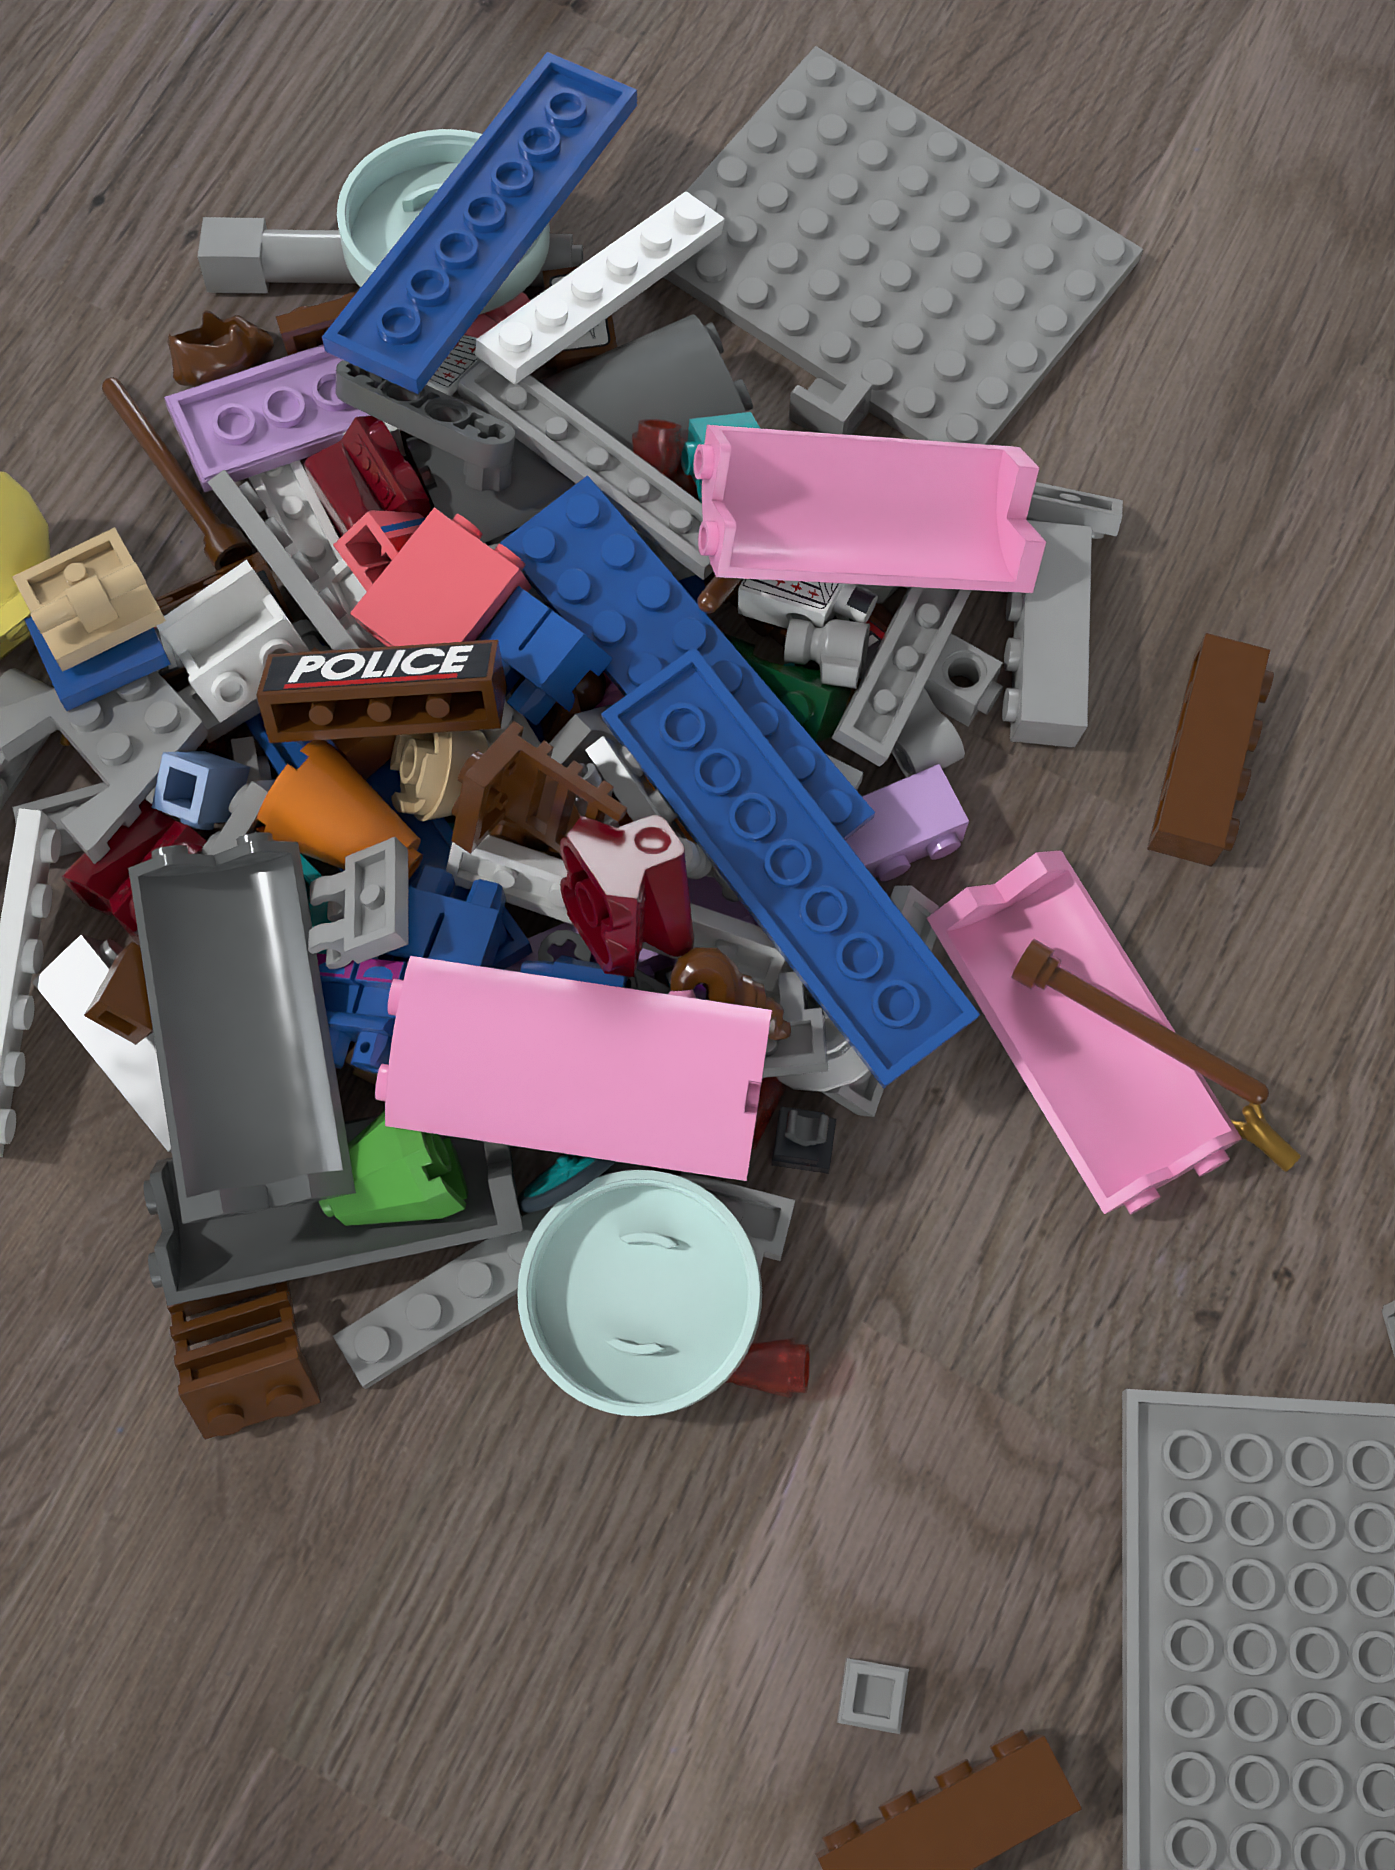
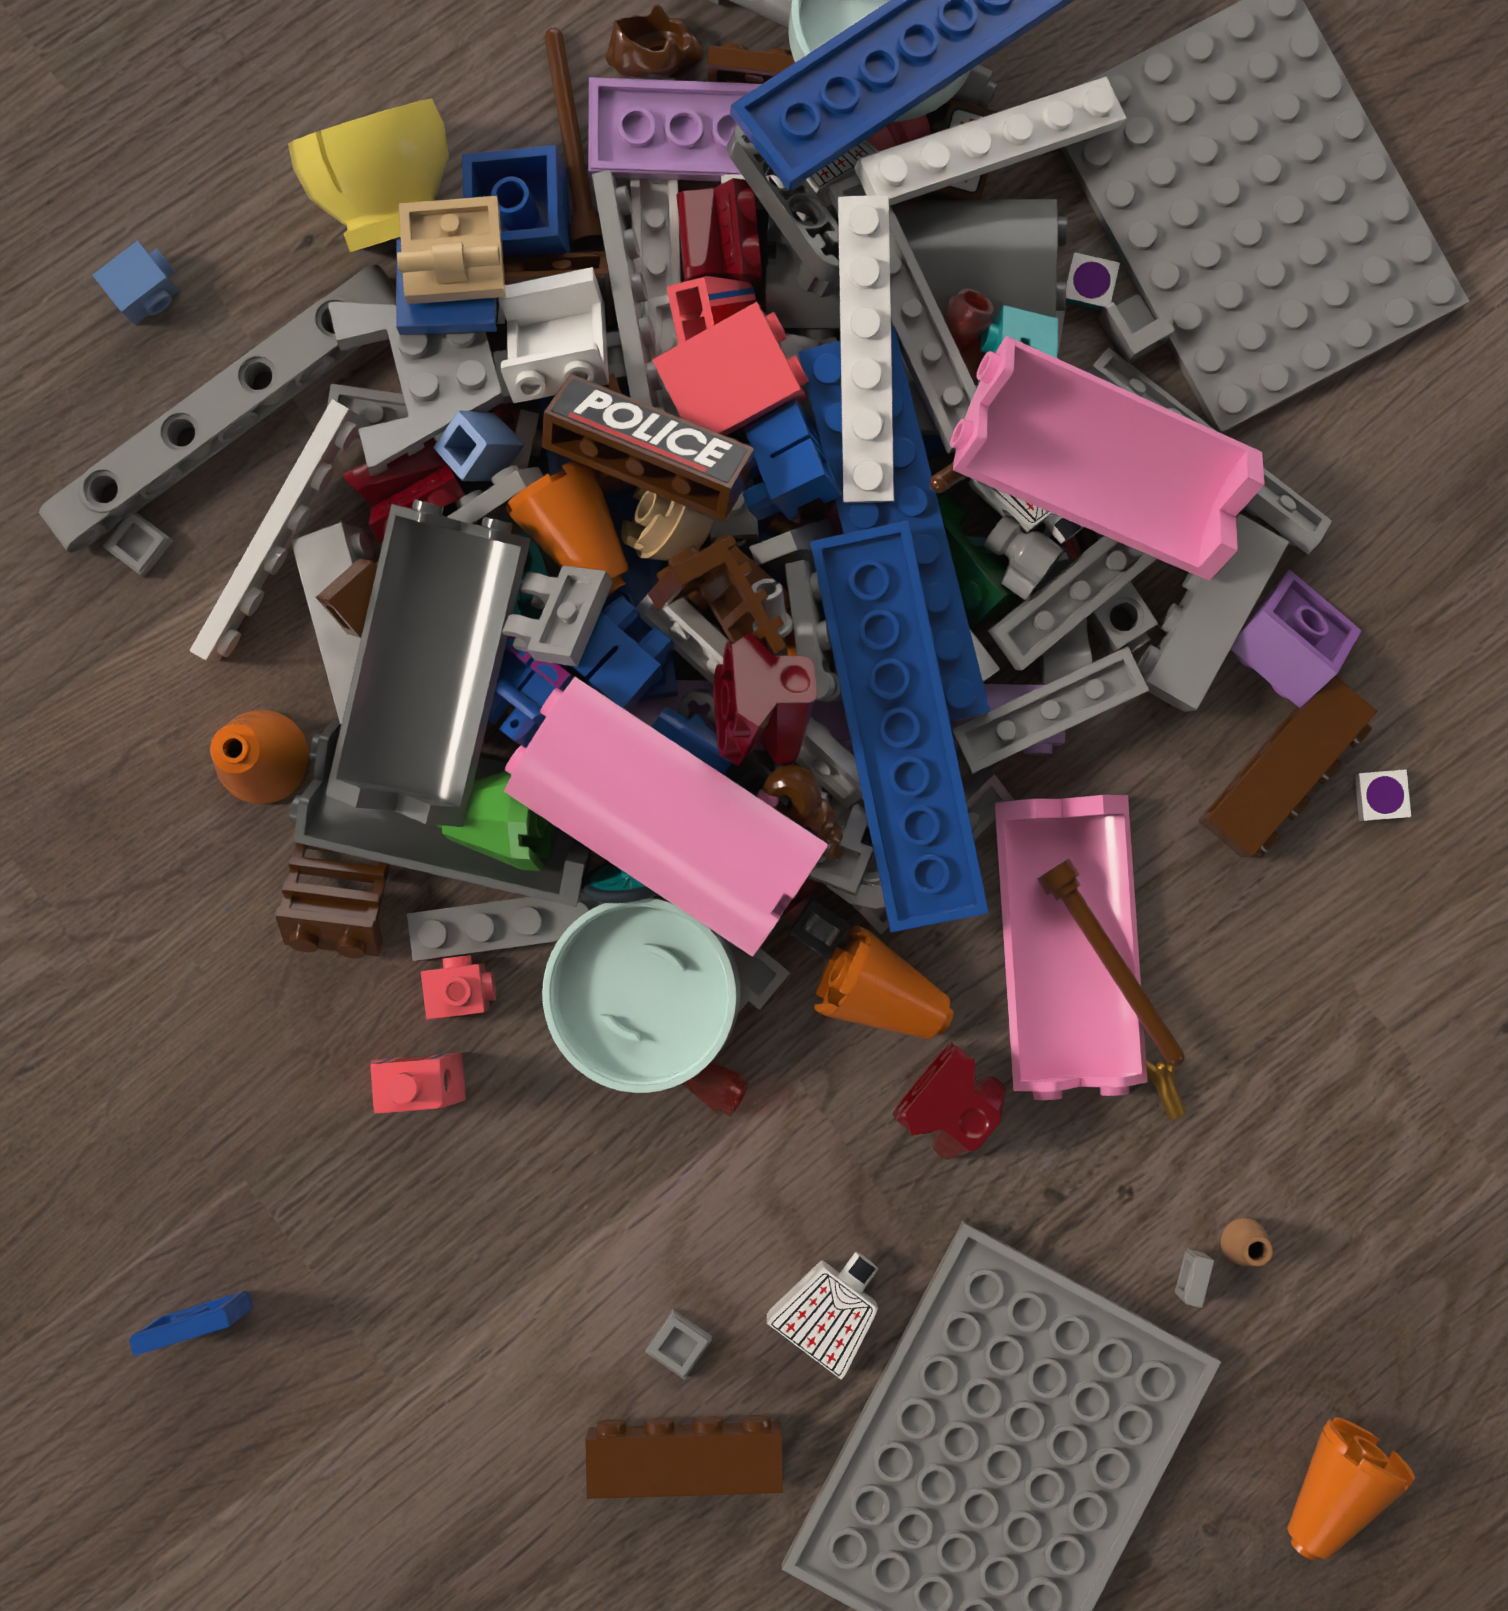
camera: 25 degrees right, 15 degrees up
(89, 1237) = (260, 756): none -> orange cone
(152, 530) = (530, 196): none -> blue brick
(425, 1522) = (417, 1082): none -> coral torso
(428, 1392) = (457, 988): none -> coral brick
(571, 507) = (866, 349): none -> white plate
(767, 383) = (1090, 281): none -> tile
(904, 1170) = (881, 989): none -> orange cone
(937, 789) = (1049, 710): none -> light grey plate
(1028, 1567) = (828, 1312): none -> white torso
(1045, 1257) = (952, 1104): none -> dark red piece
(1148, 626) = (1295, 640): none -> medium lavender slope
(1321, 738) = (1382, 795): none -> tile

